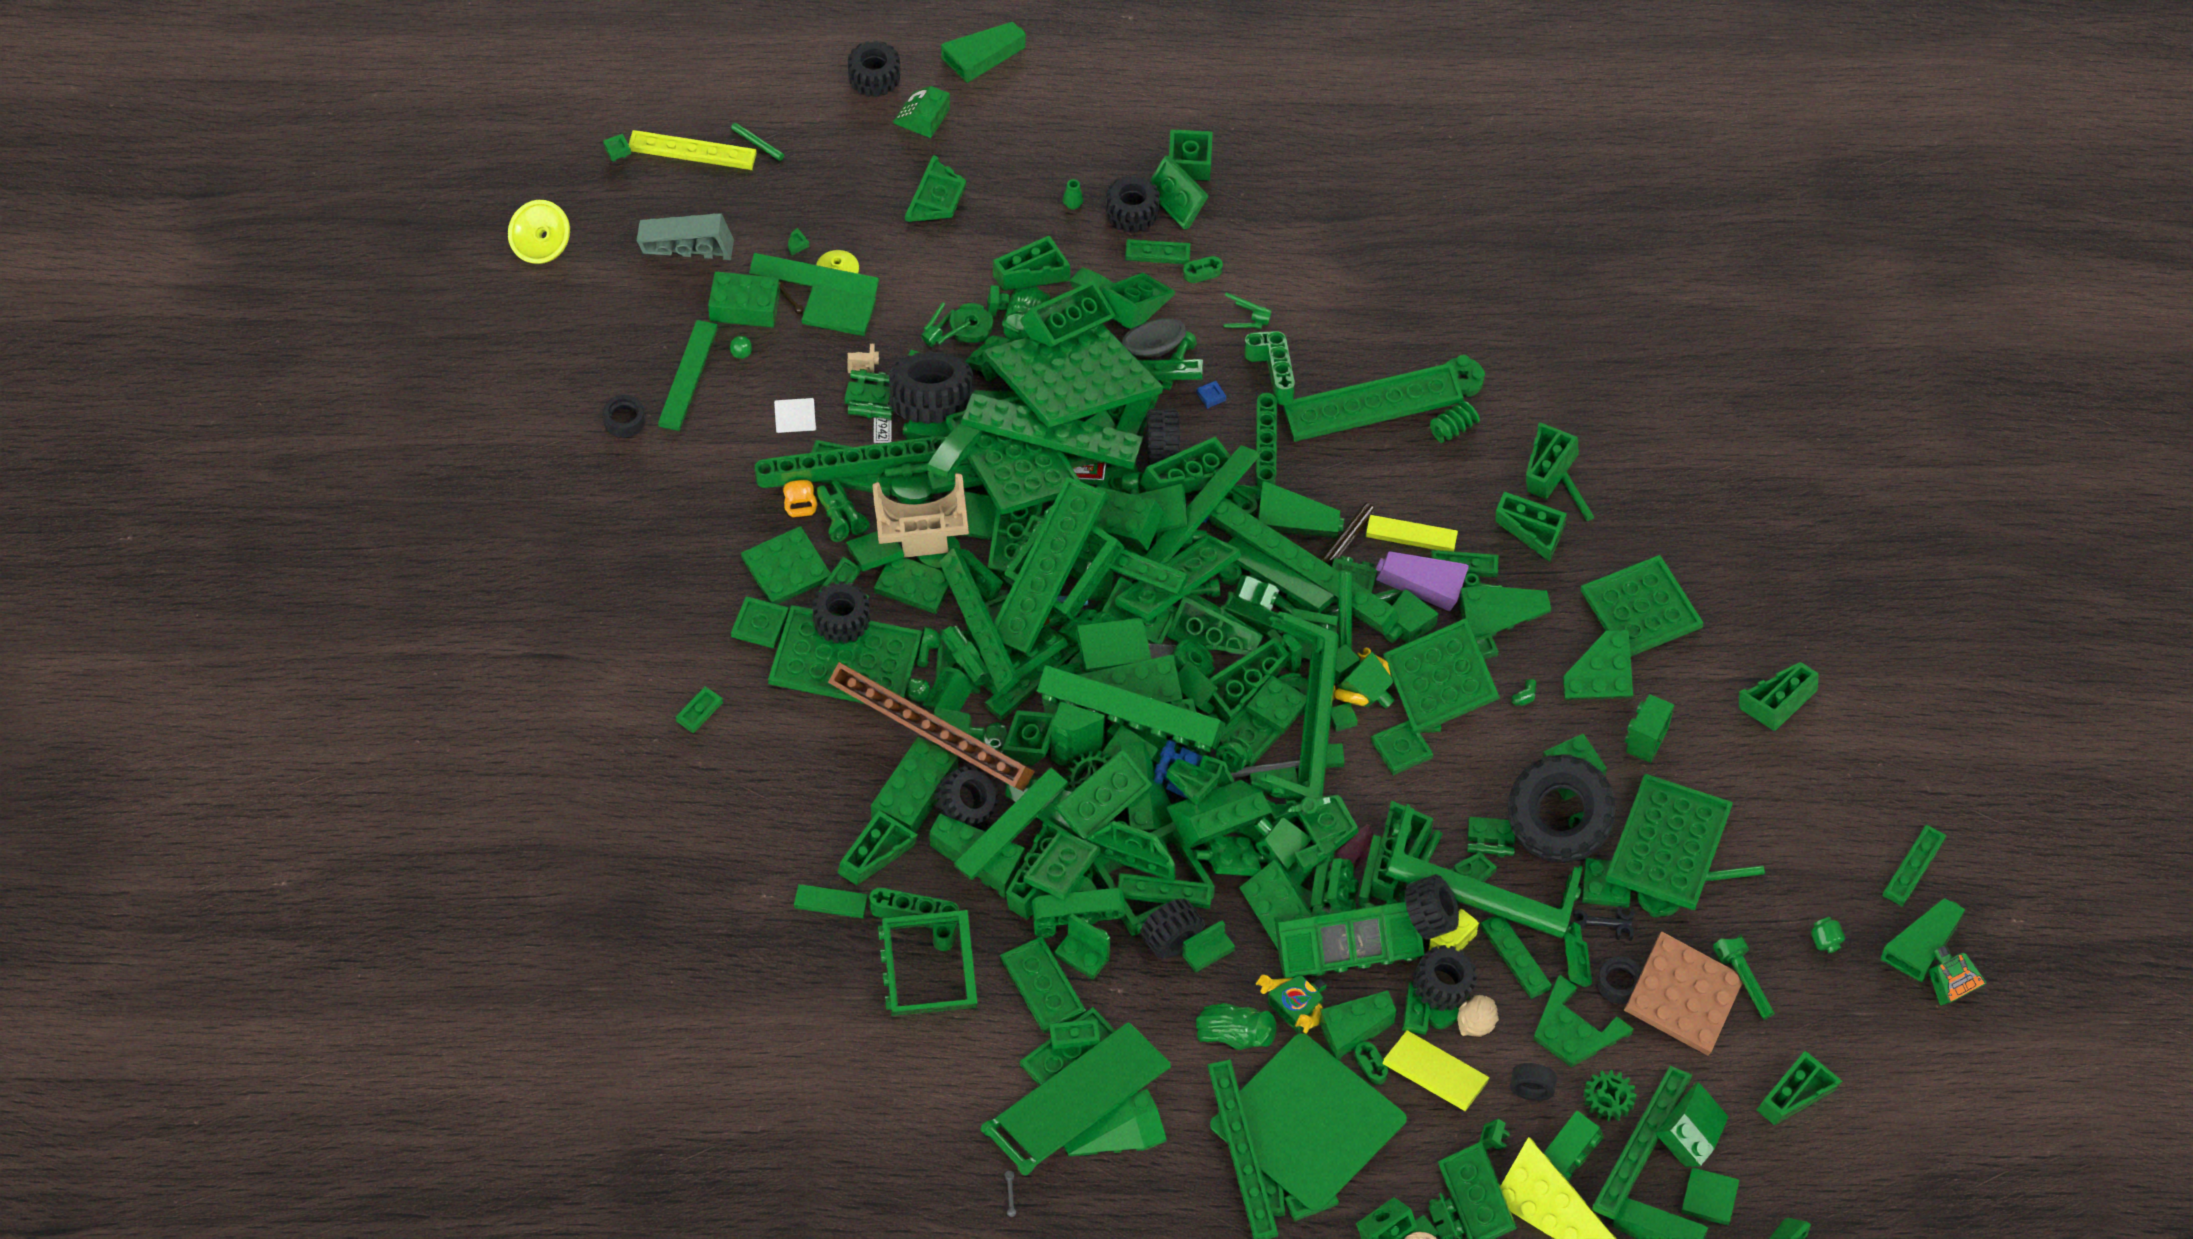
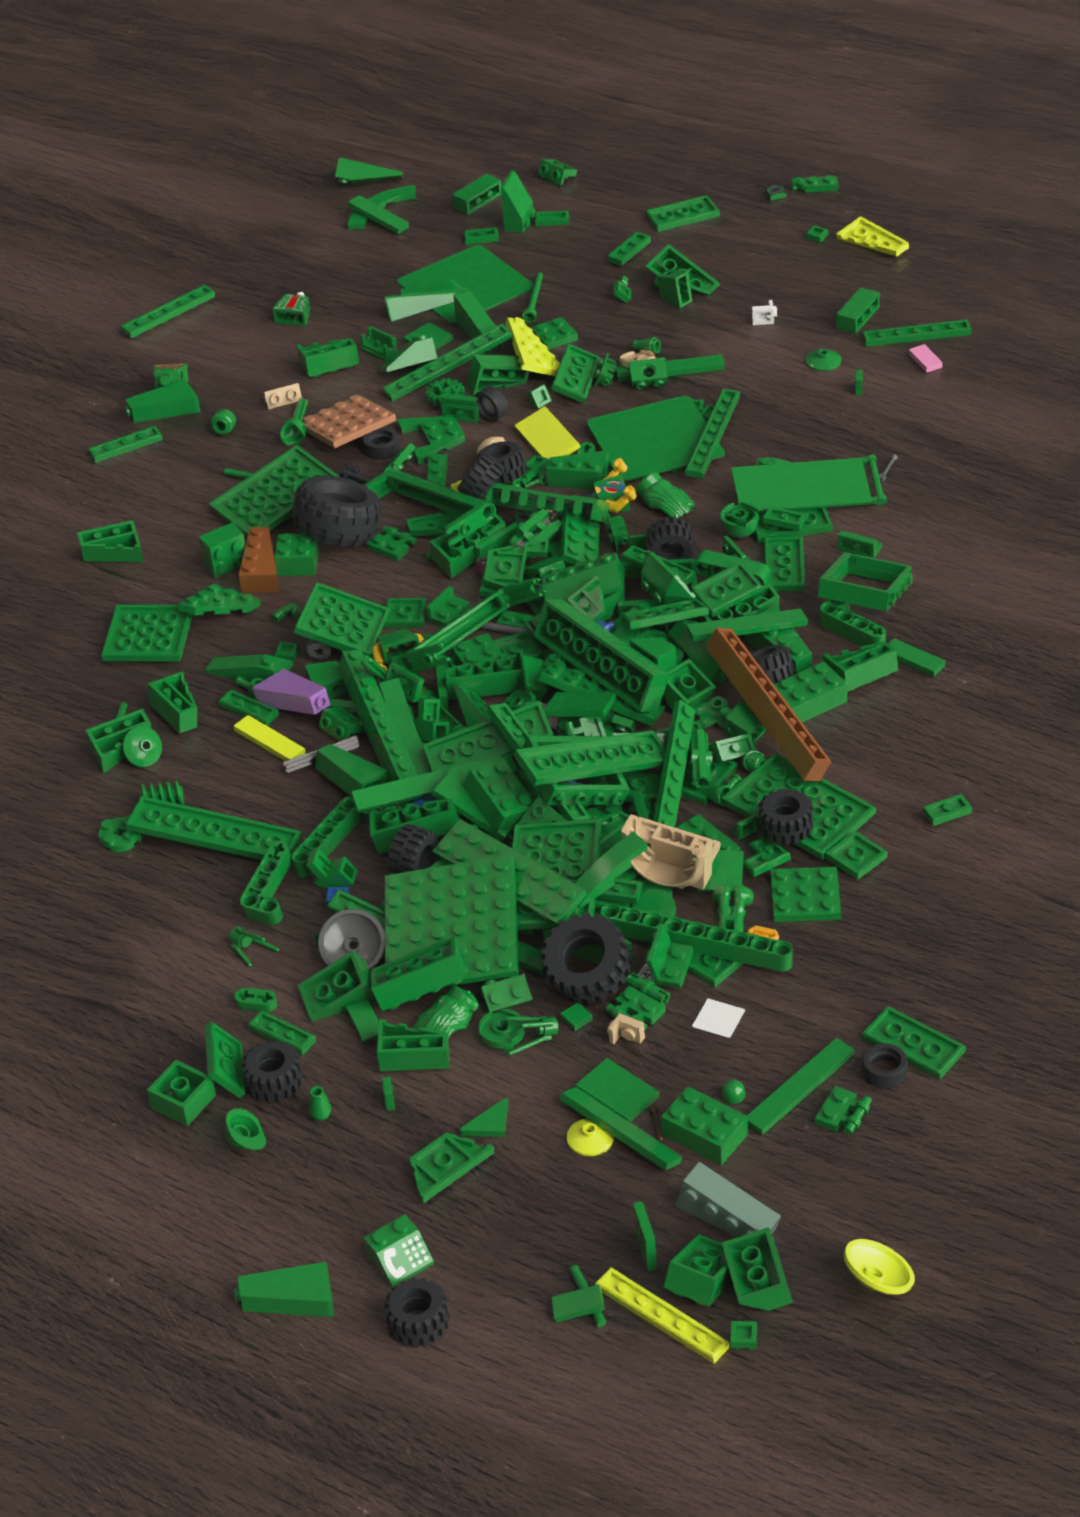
camera: 145 degrees left, 15 degrees down
(612, 454) = (923, 1046): none -> green tile
(631, 194) = (757, 1270): none -> green slope
(646, 366) = (836, 1108): none -> green plate
(677, 186) = (699, 1271): none -> green slope
(734, 182) = (645, 1236): none -> green tile
(758, 126) = (578, 1303): none -> green tile
(797, 242) = (615, 1174): green tile -> none
(864, 432) = (668, 960): none -> green bracket
(884, 611) = (745, 827): none -> green slope
(925, 243) = (490, 1123): none -> green tile
(975, 1044) = (858, 544): none -> green panel
(996, 300) = (466, 1036): green tile -> none
(1023, 227) = (388, 1093): none -> green tile
(1110, 143) = (244, 1130): none -> green piece
(1121, 1003) = (739, 520): none -> green cylinder
(1230, 406) = (331, 874): none -> green brick
(1260, 954) = (618, 530): none -> green hinge
(1309, 805) = (511, 575): green piece -> none
(1358, 766) = (445, 607): none -> green bracket
(1397, 1001) = (542, 479): none -> green hand
(1518, 461) = (134, 749): none -> green dish
(1572, 1066) = (461, 407): none -> green plate
(1607, 738) = (258, 563): none -> dark orange wedge
(1757, 1152) = (378, 344): none -> green hinge
(1793, 1018) = (282, 396): none -> tan hinge
(1914, 1171) = (292, 309): none -> green torso
(2069, 1106) = (167, 311): none -> green plate

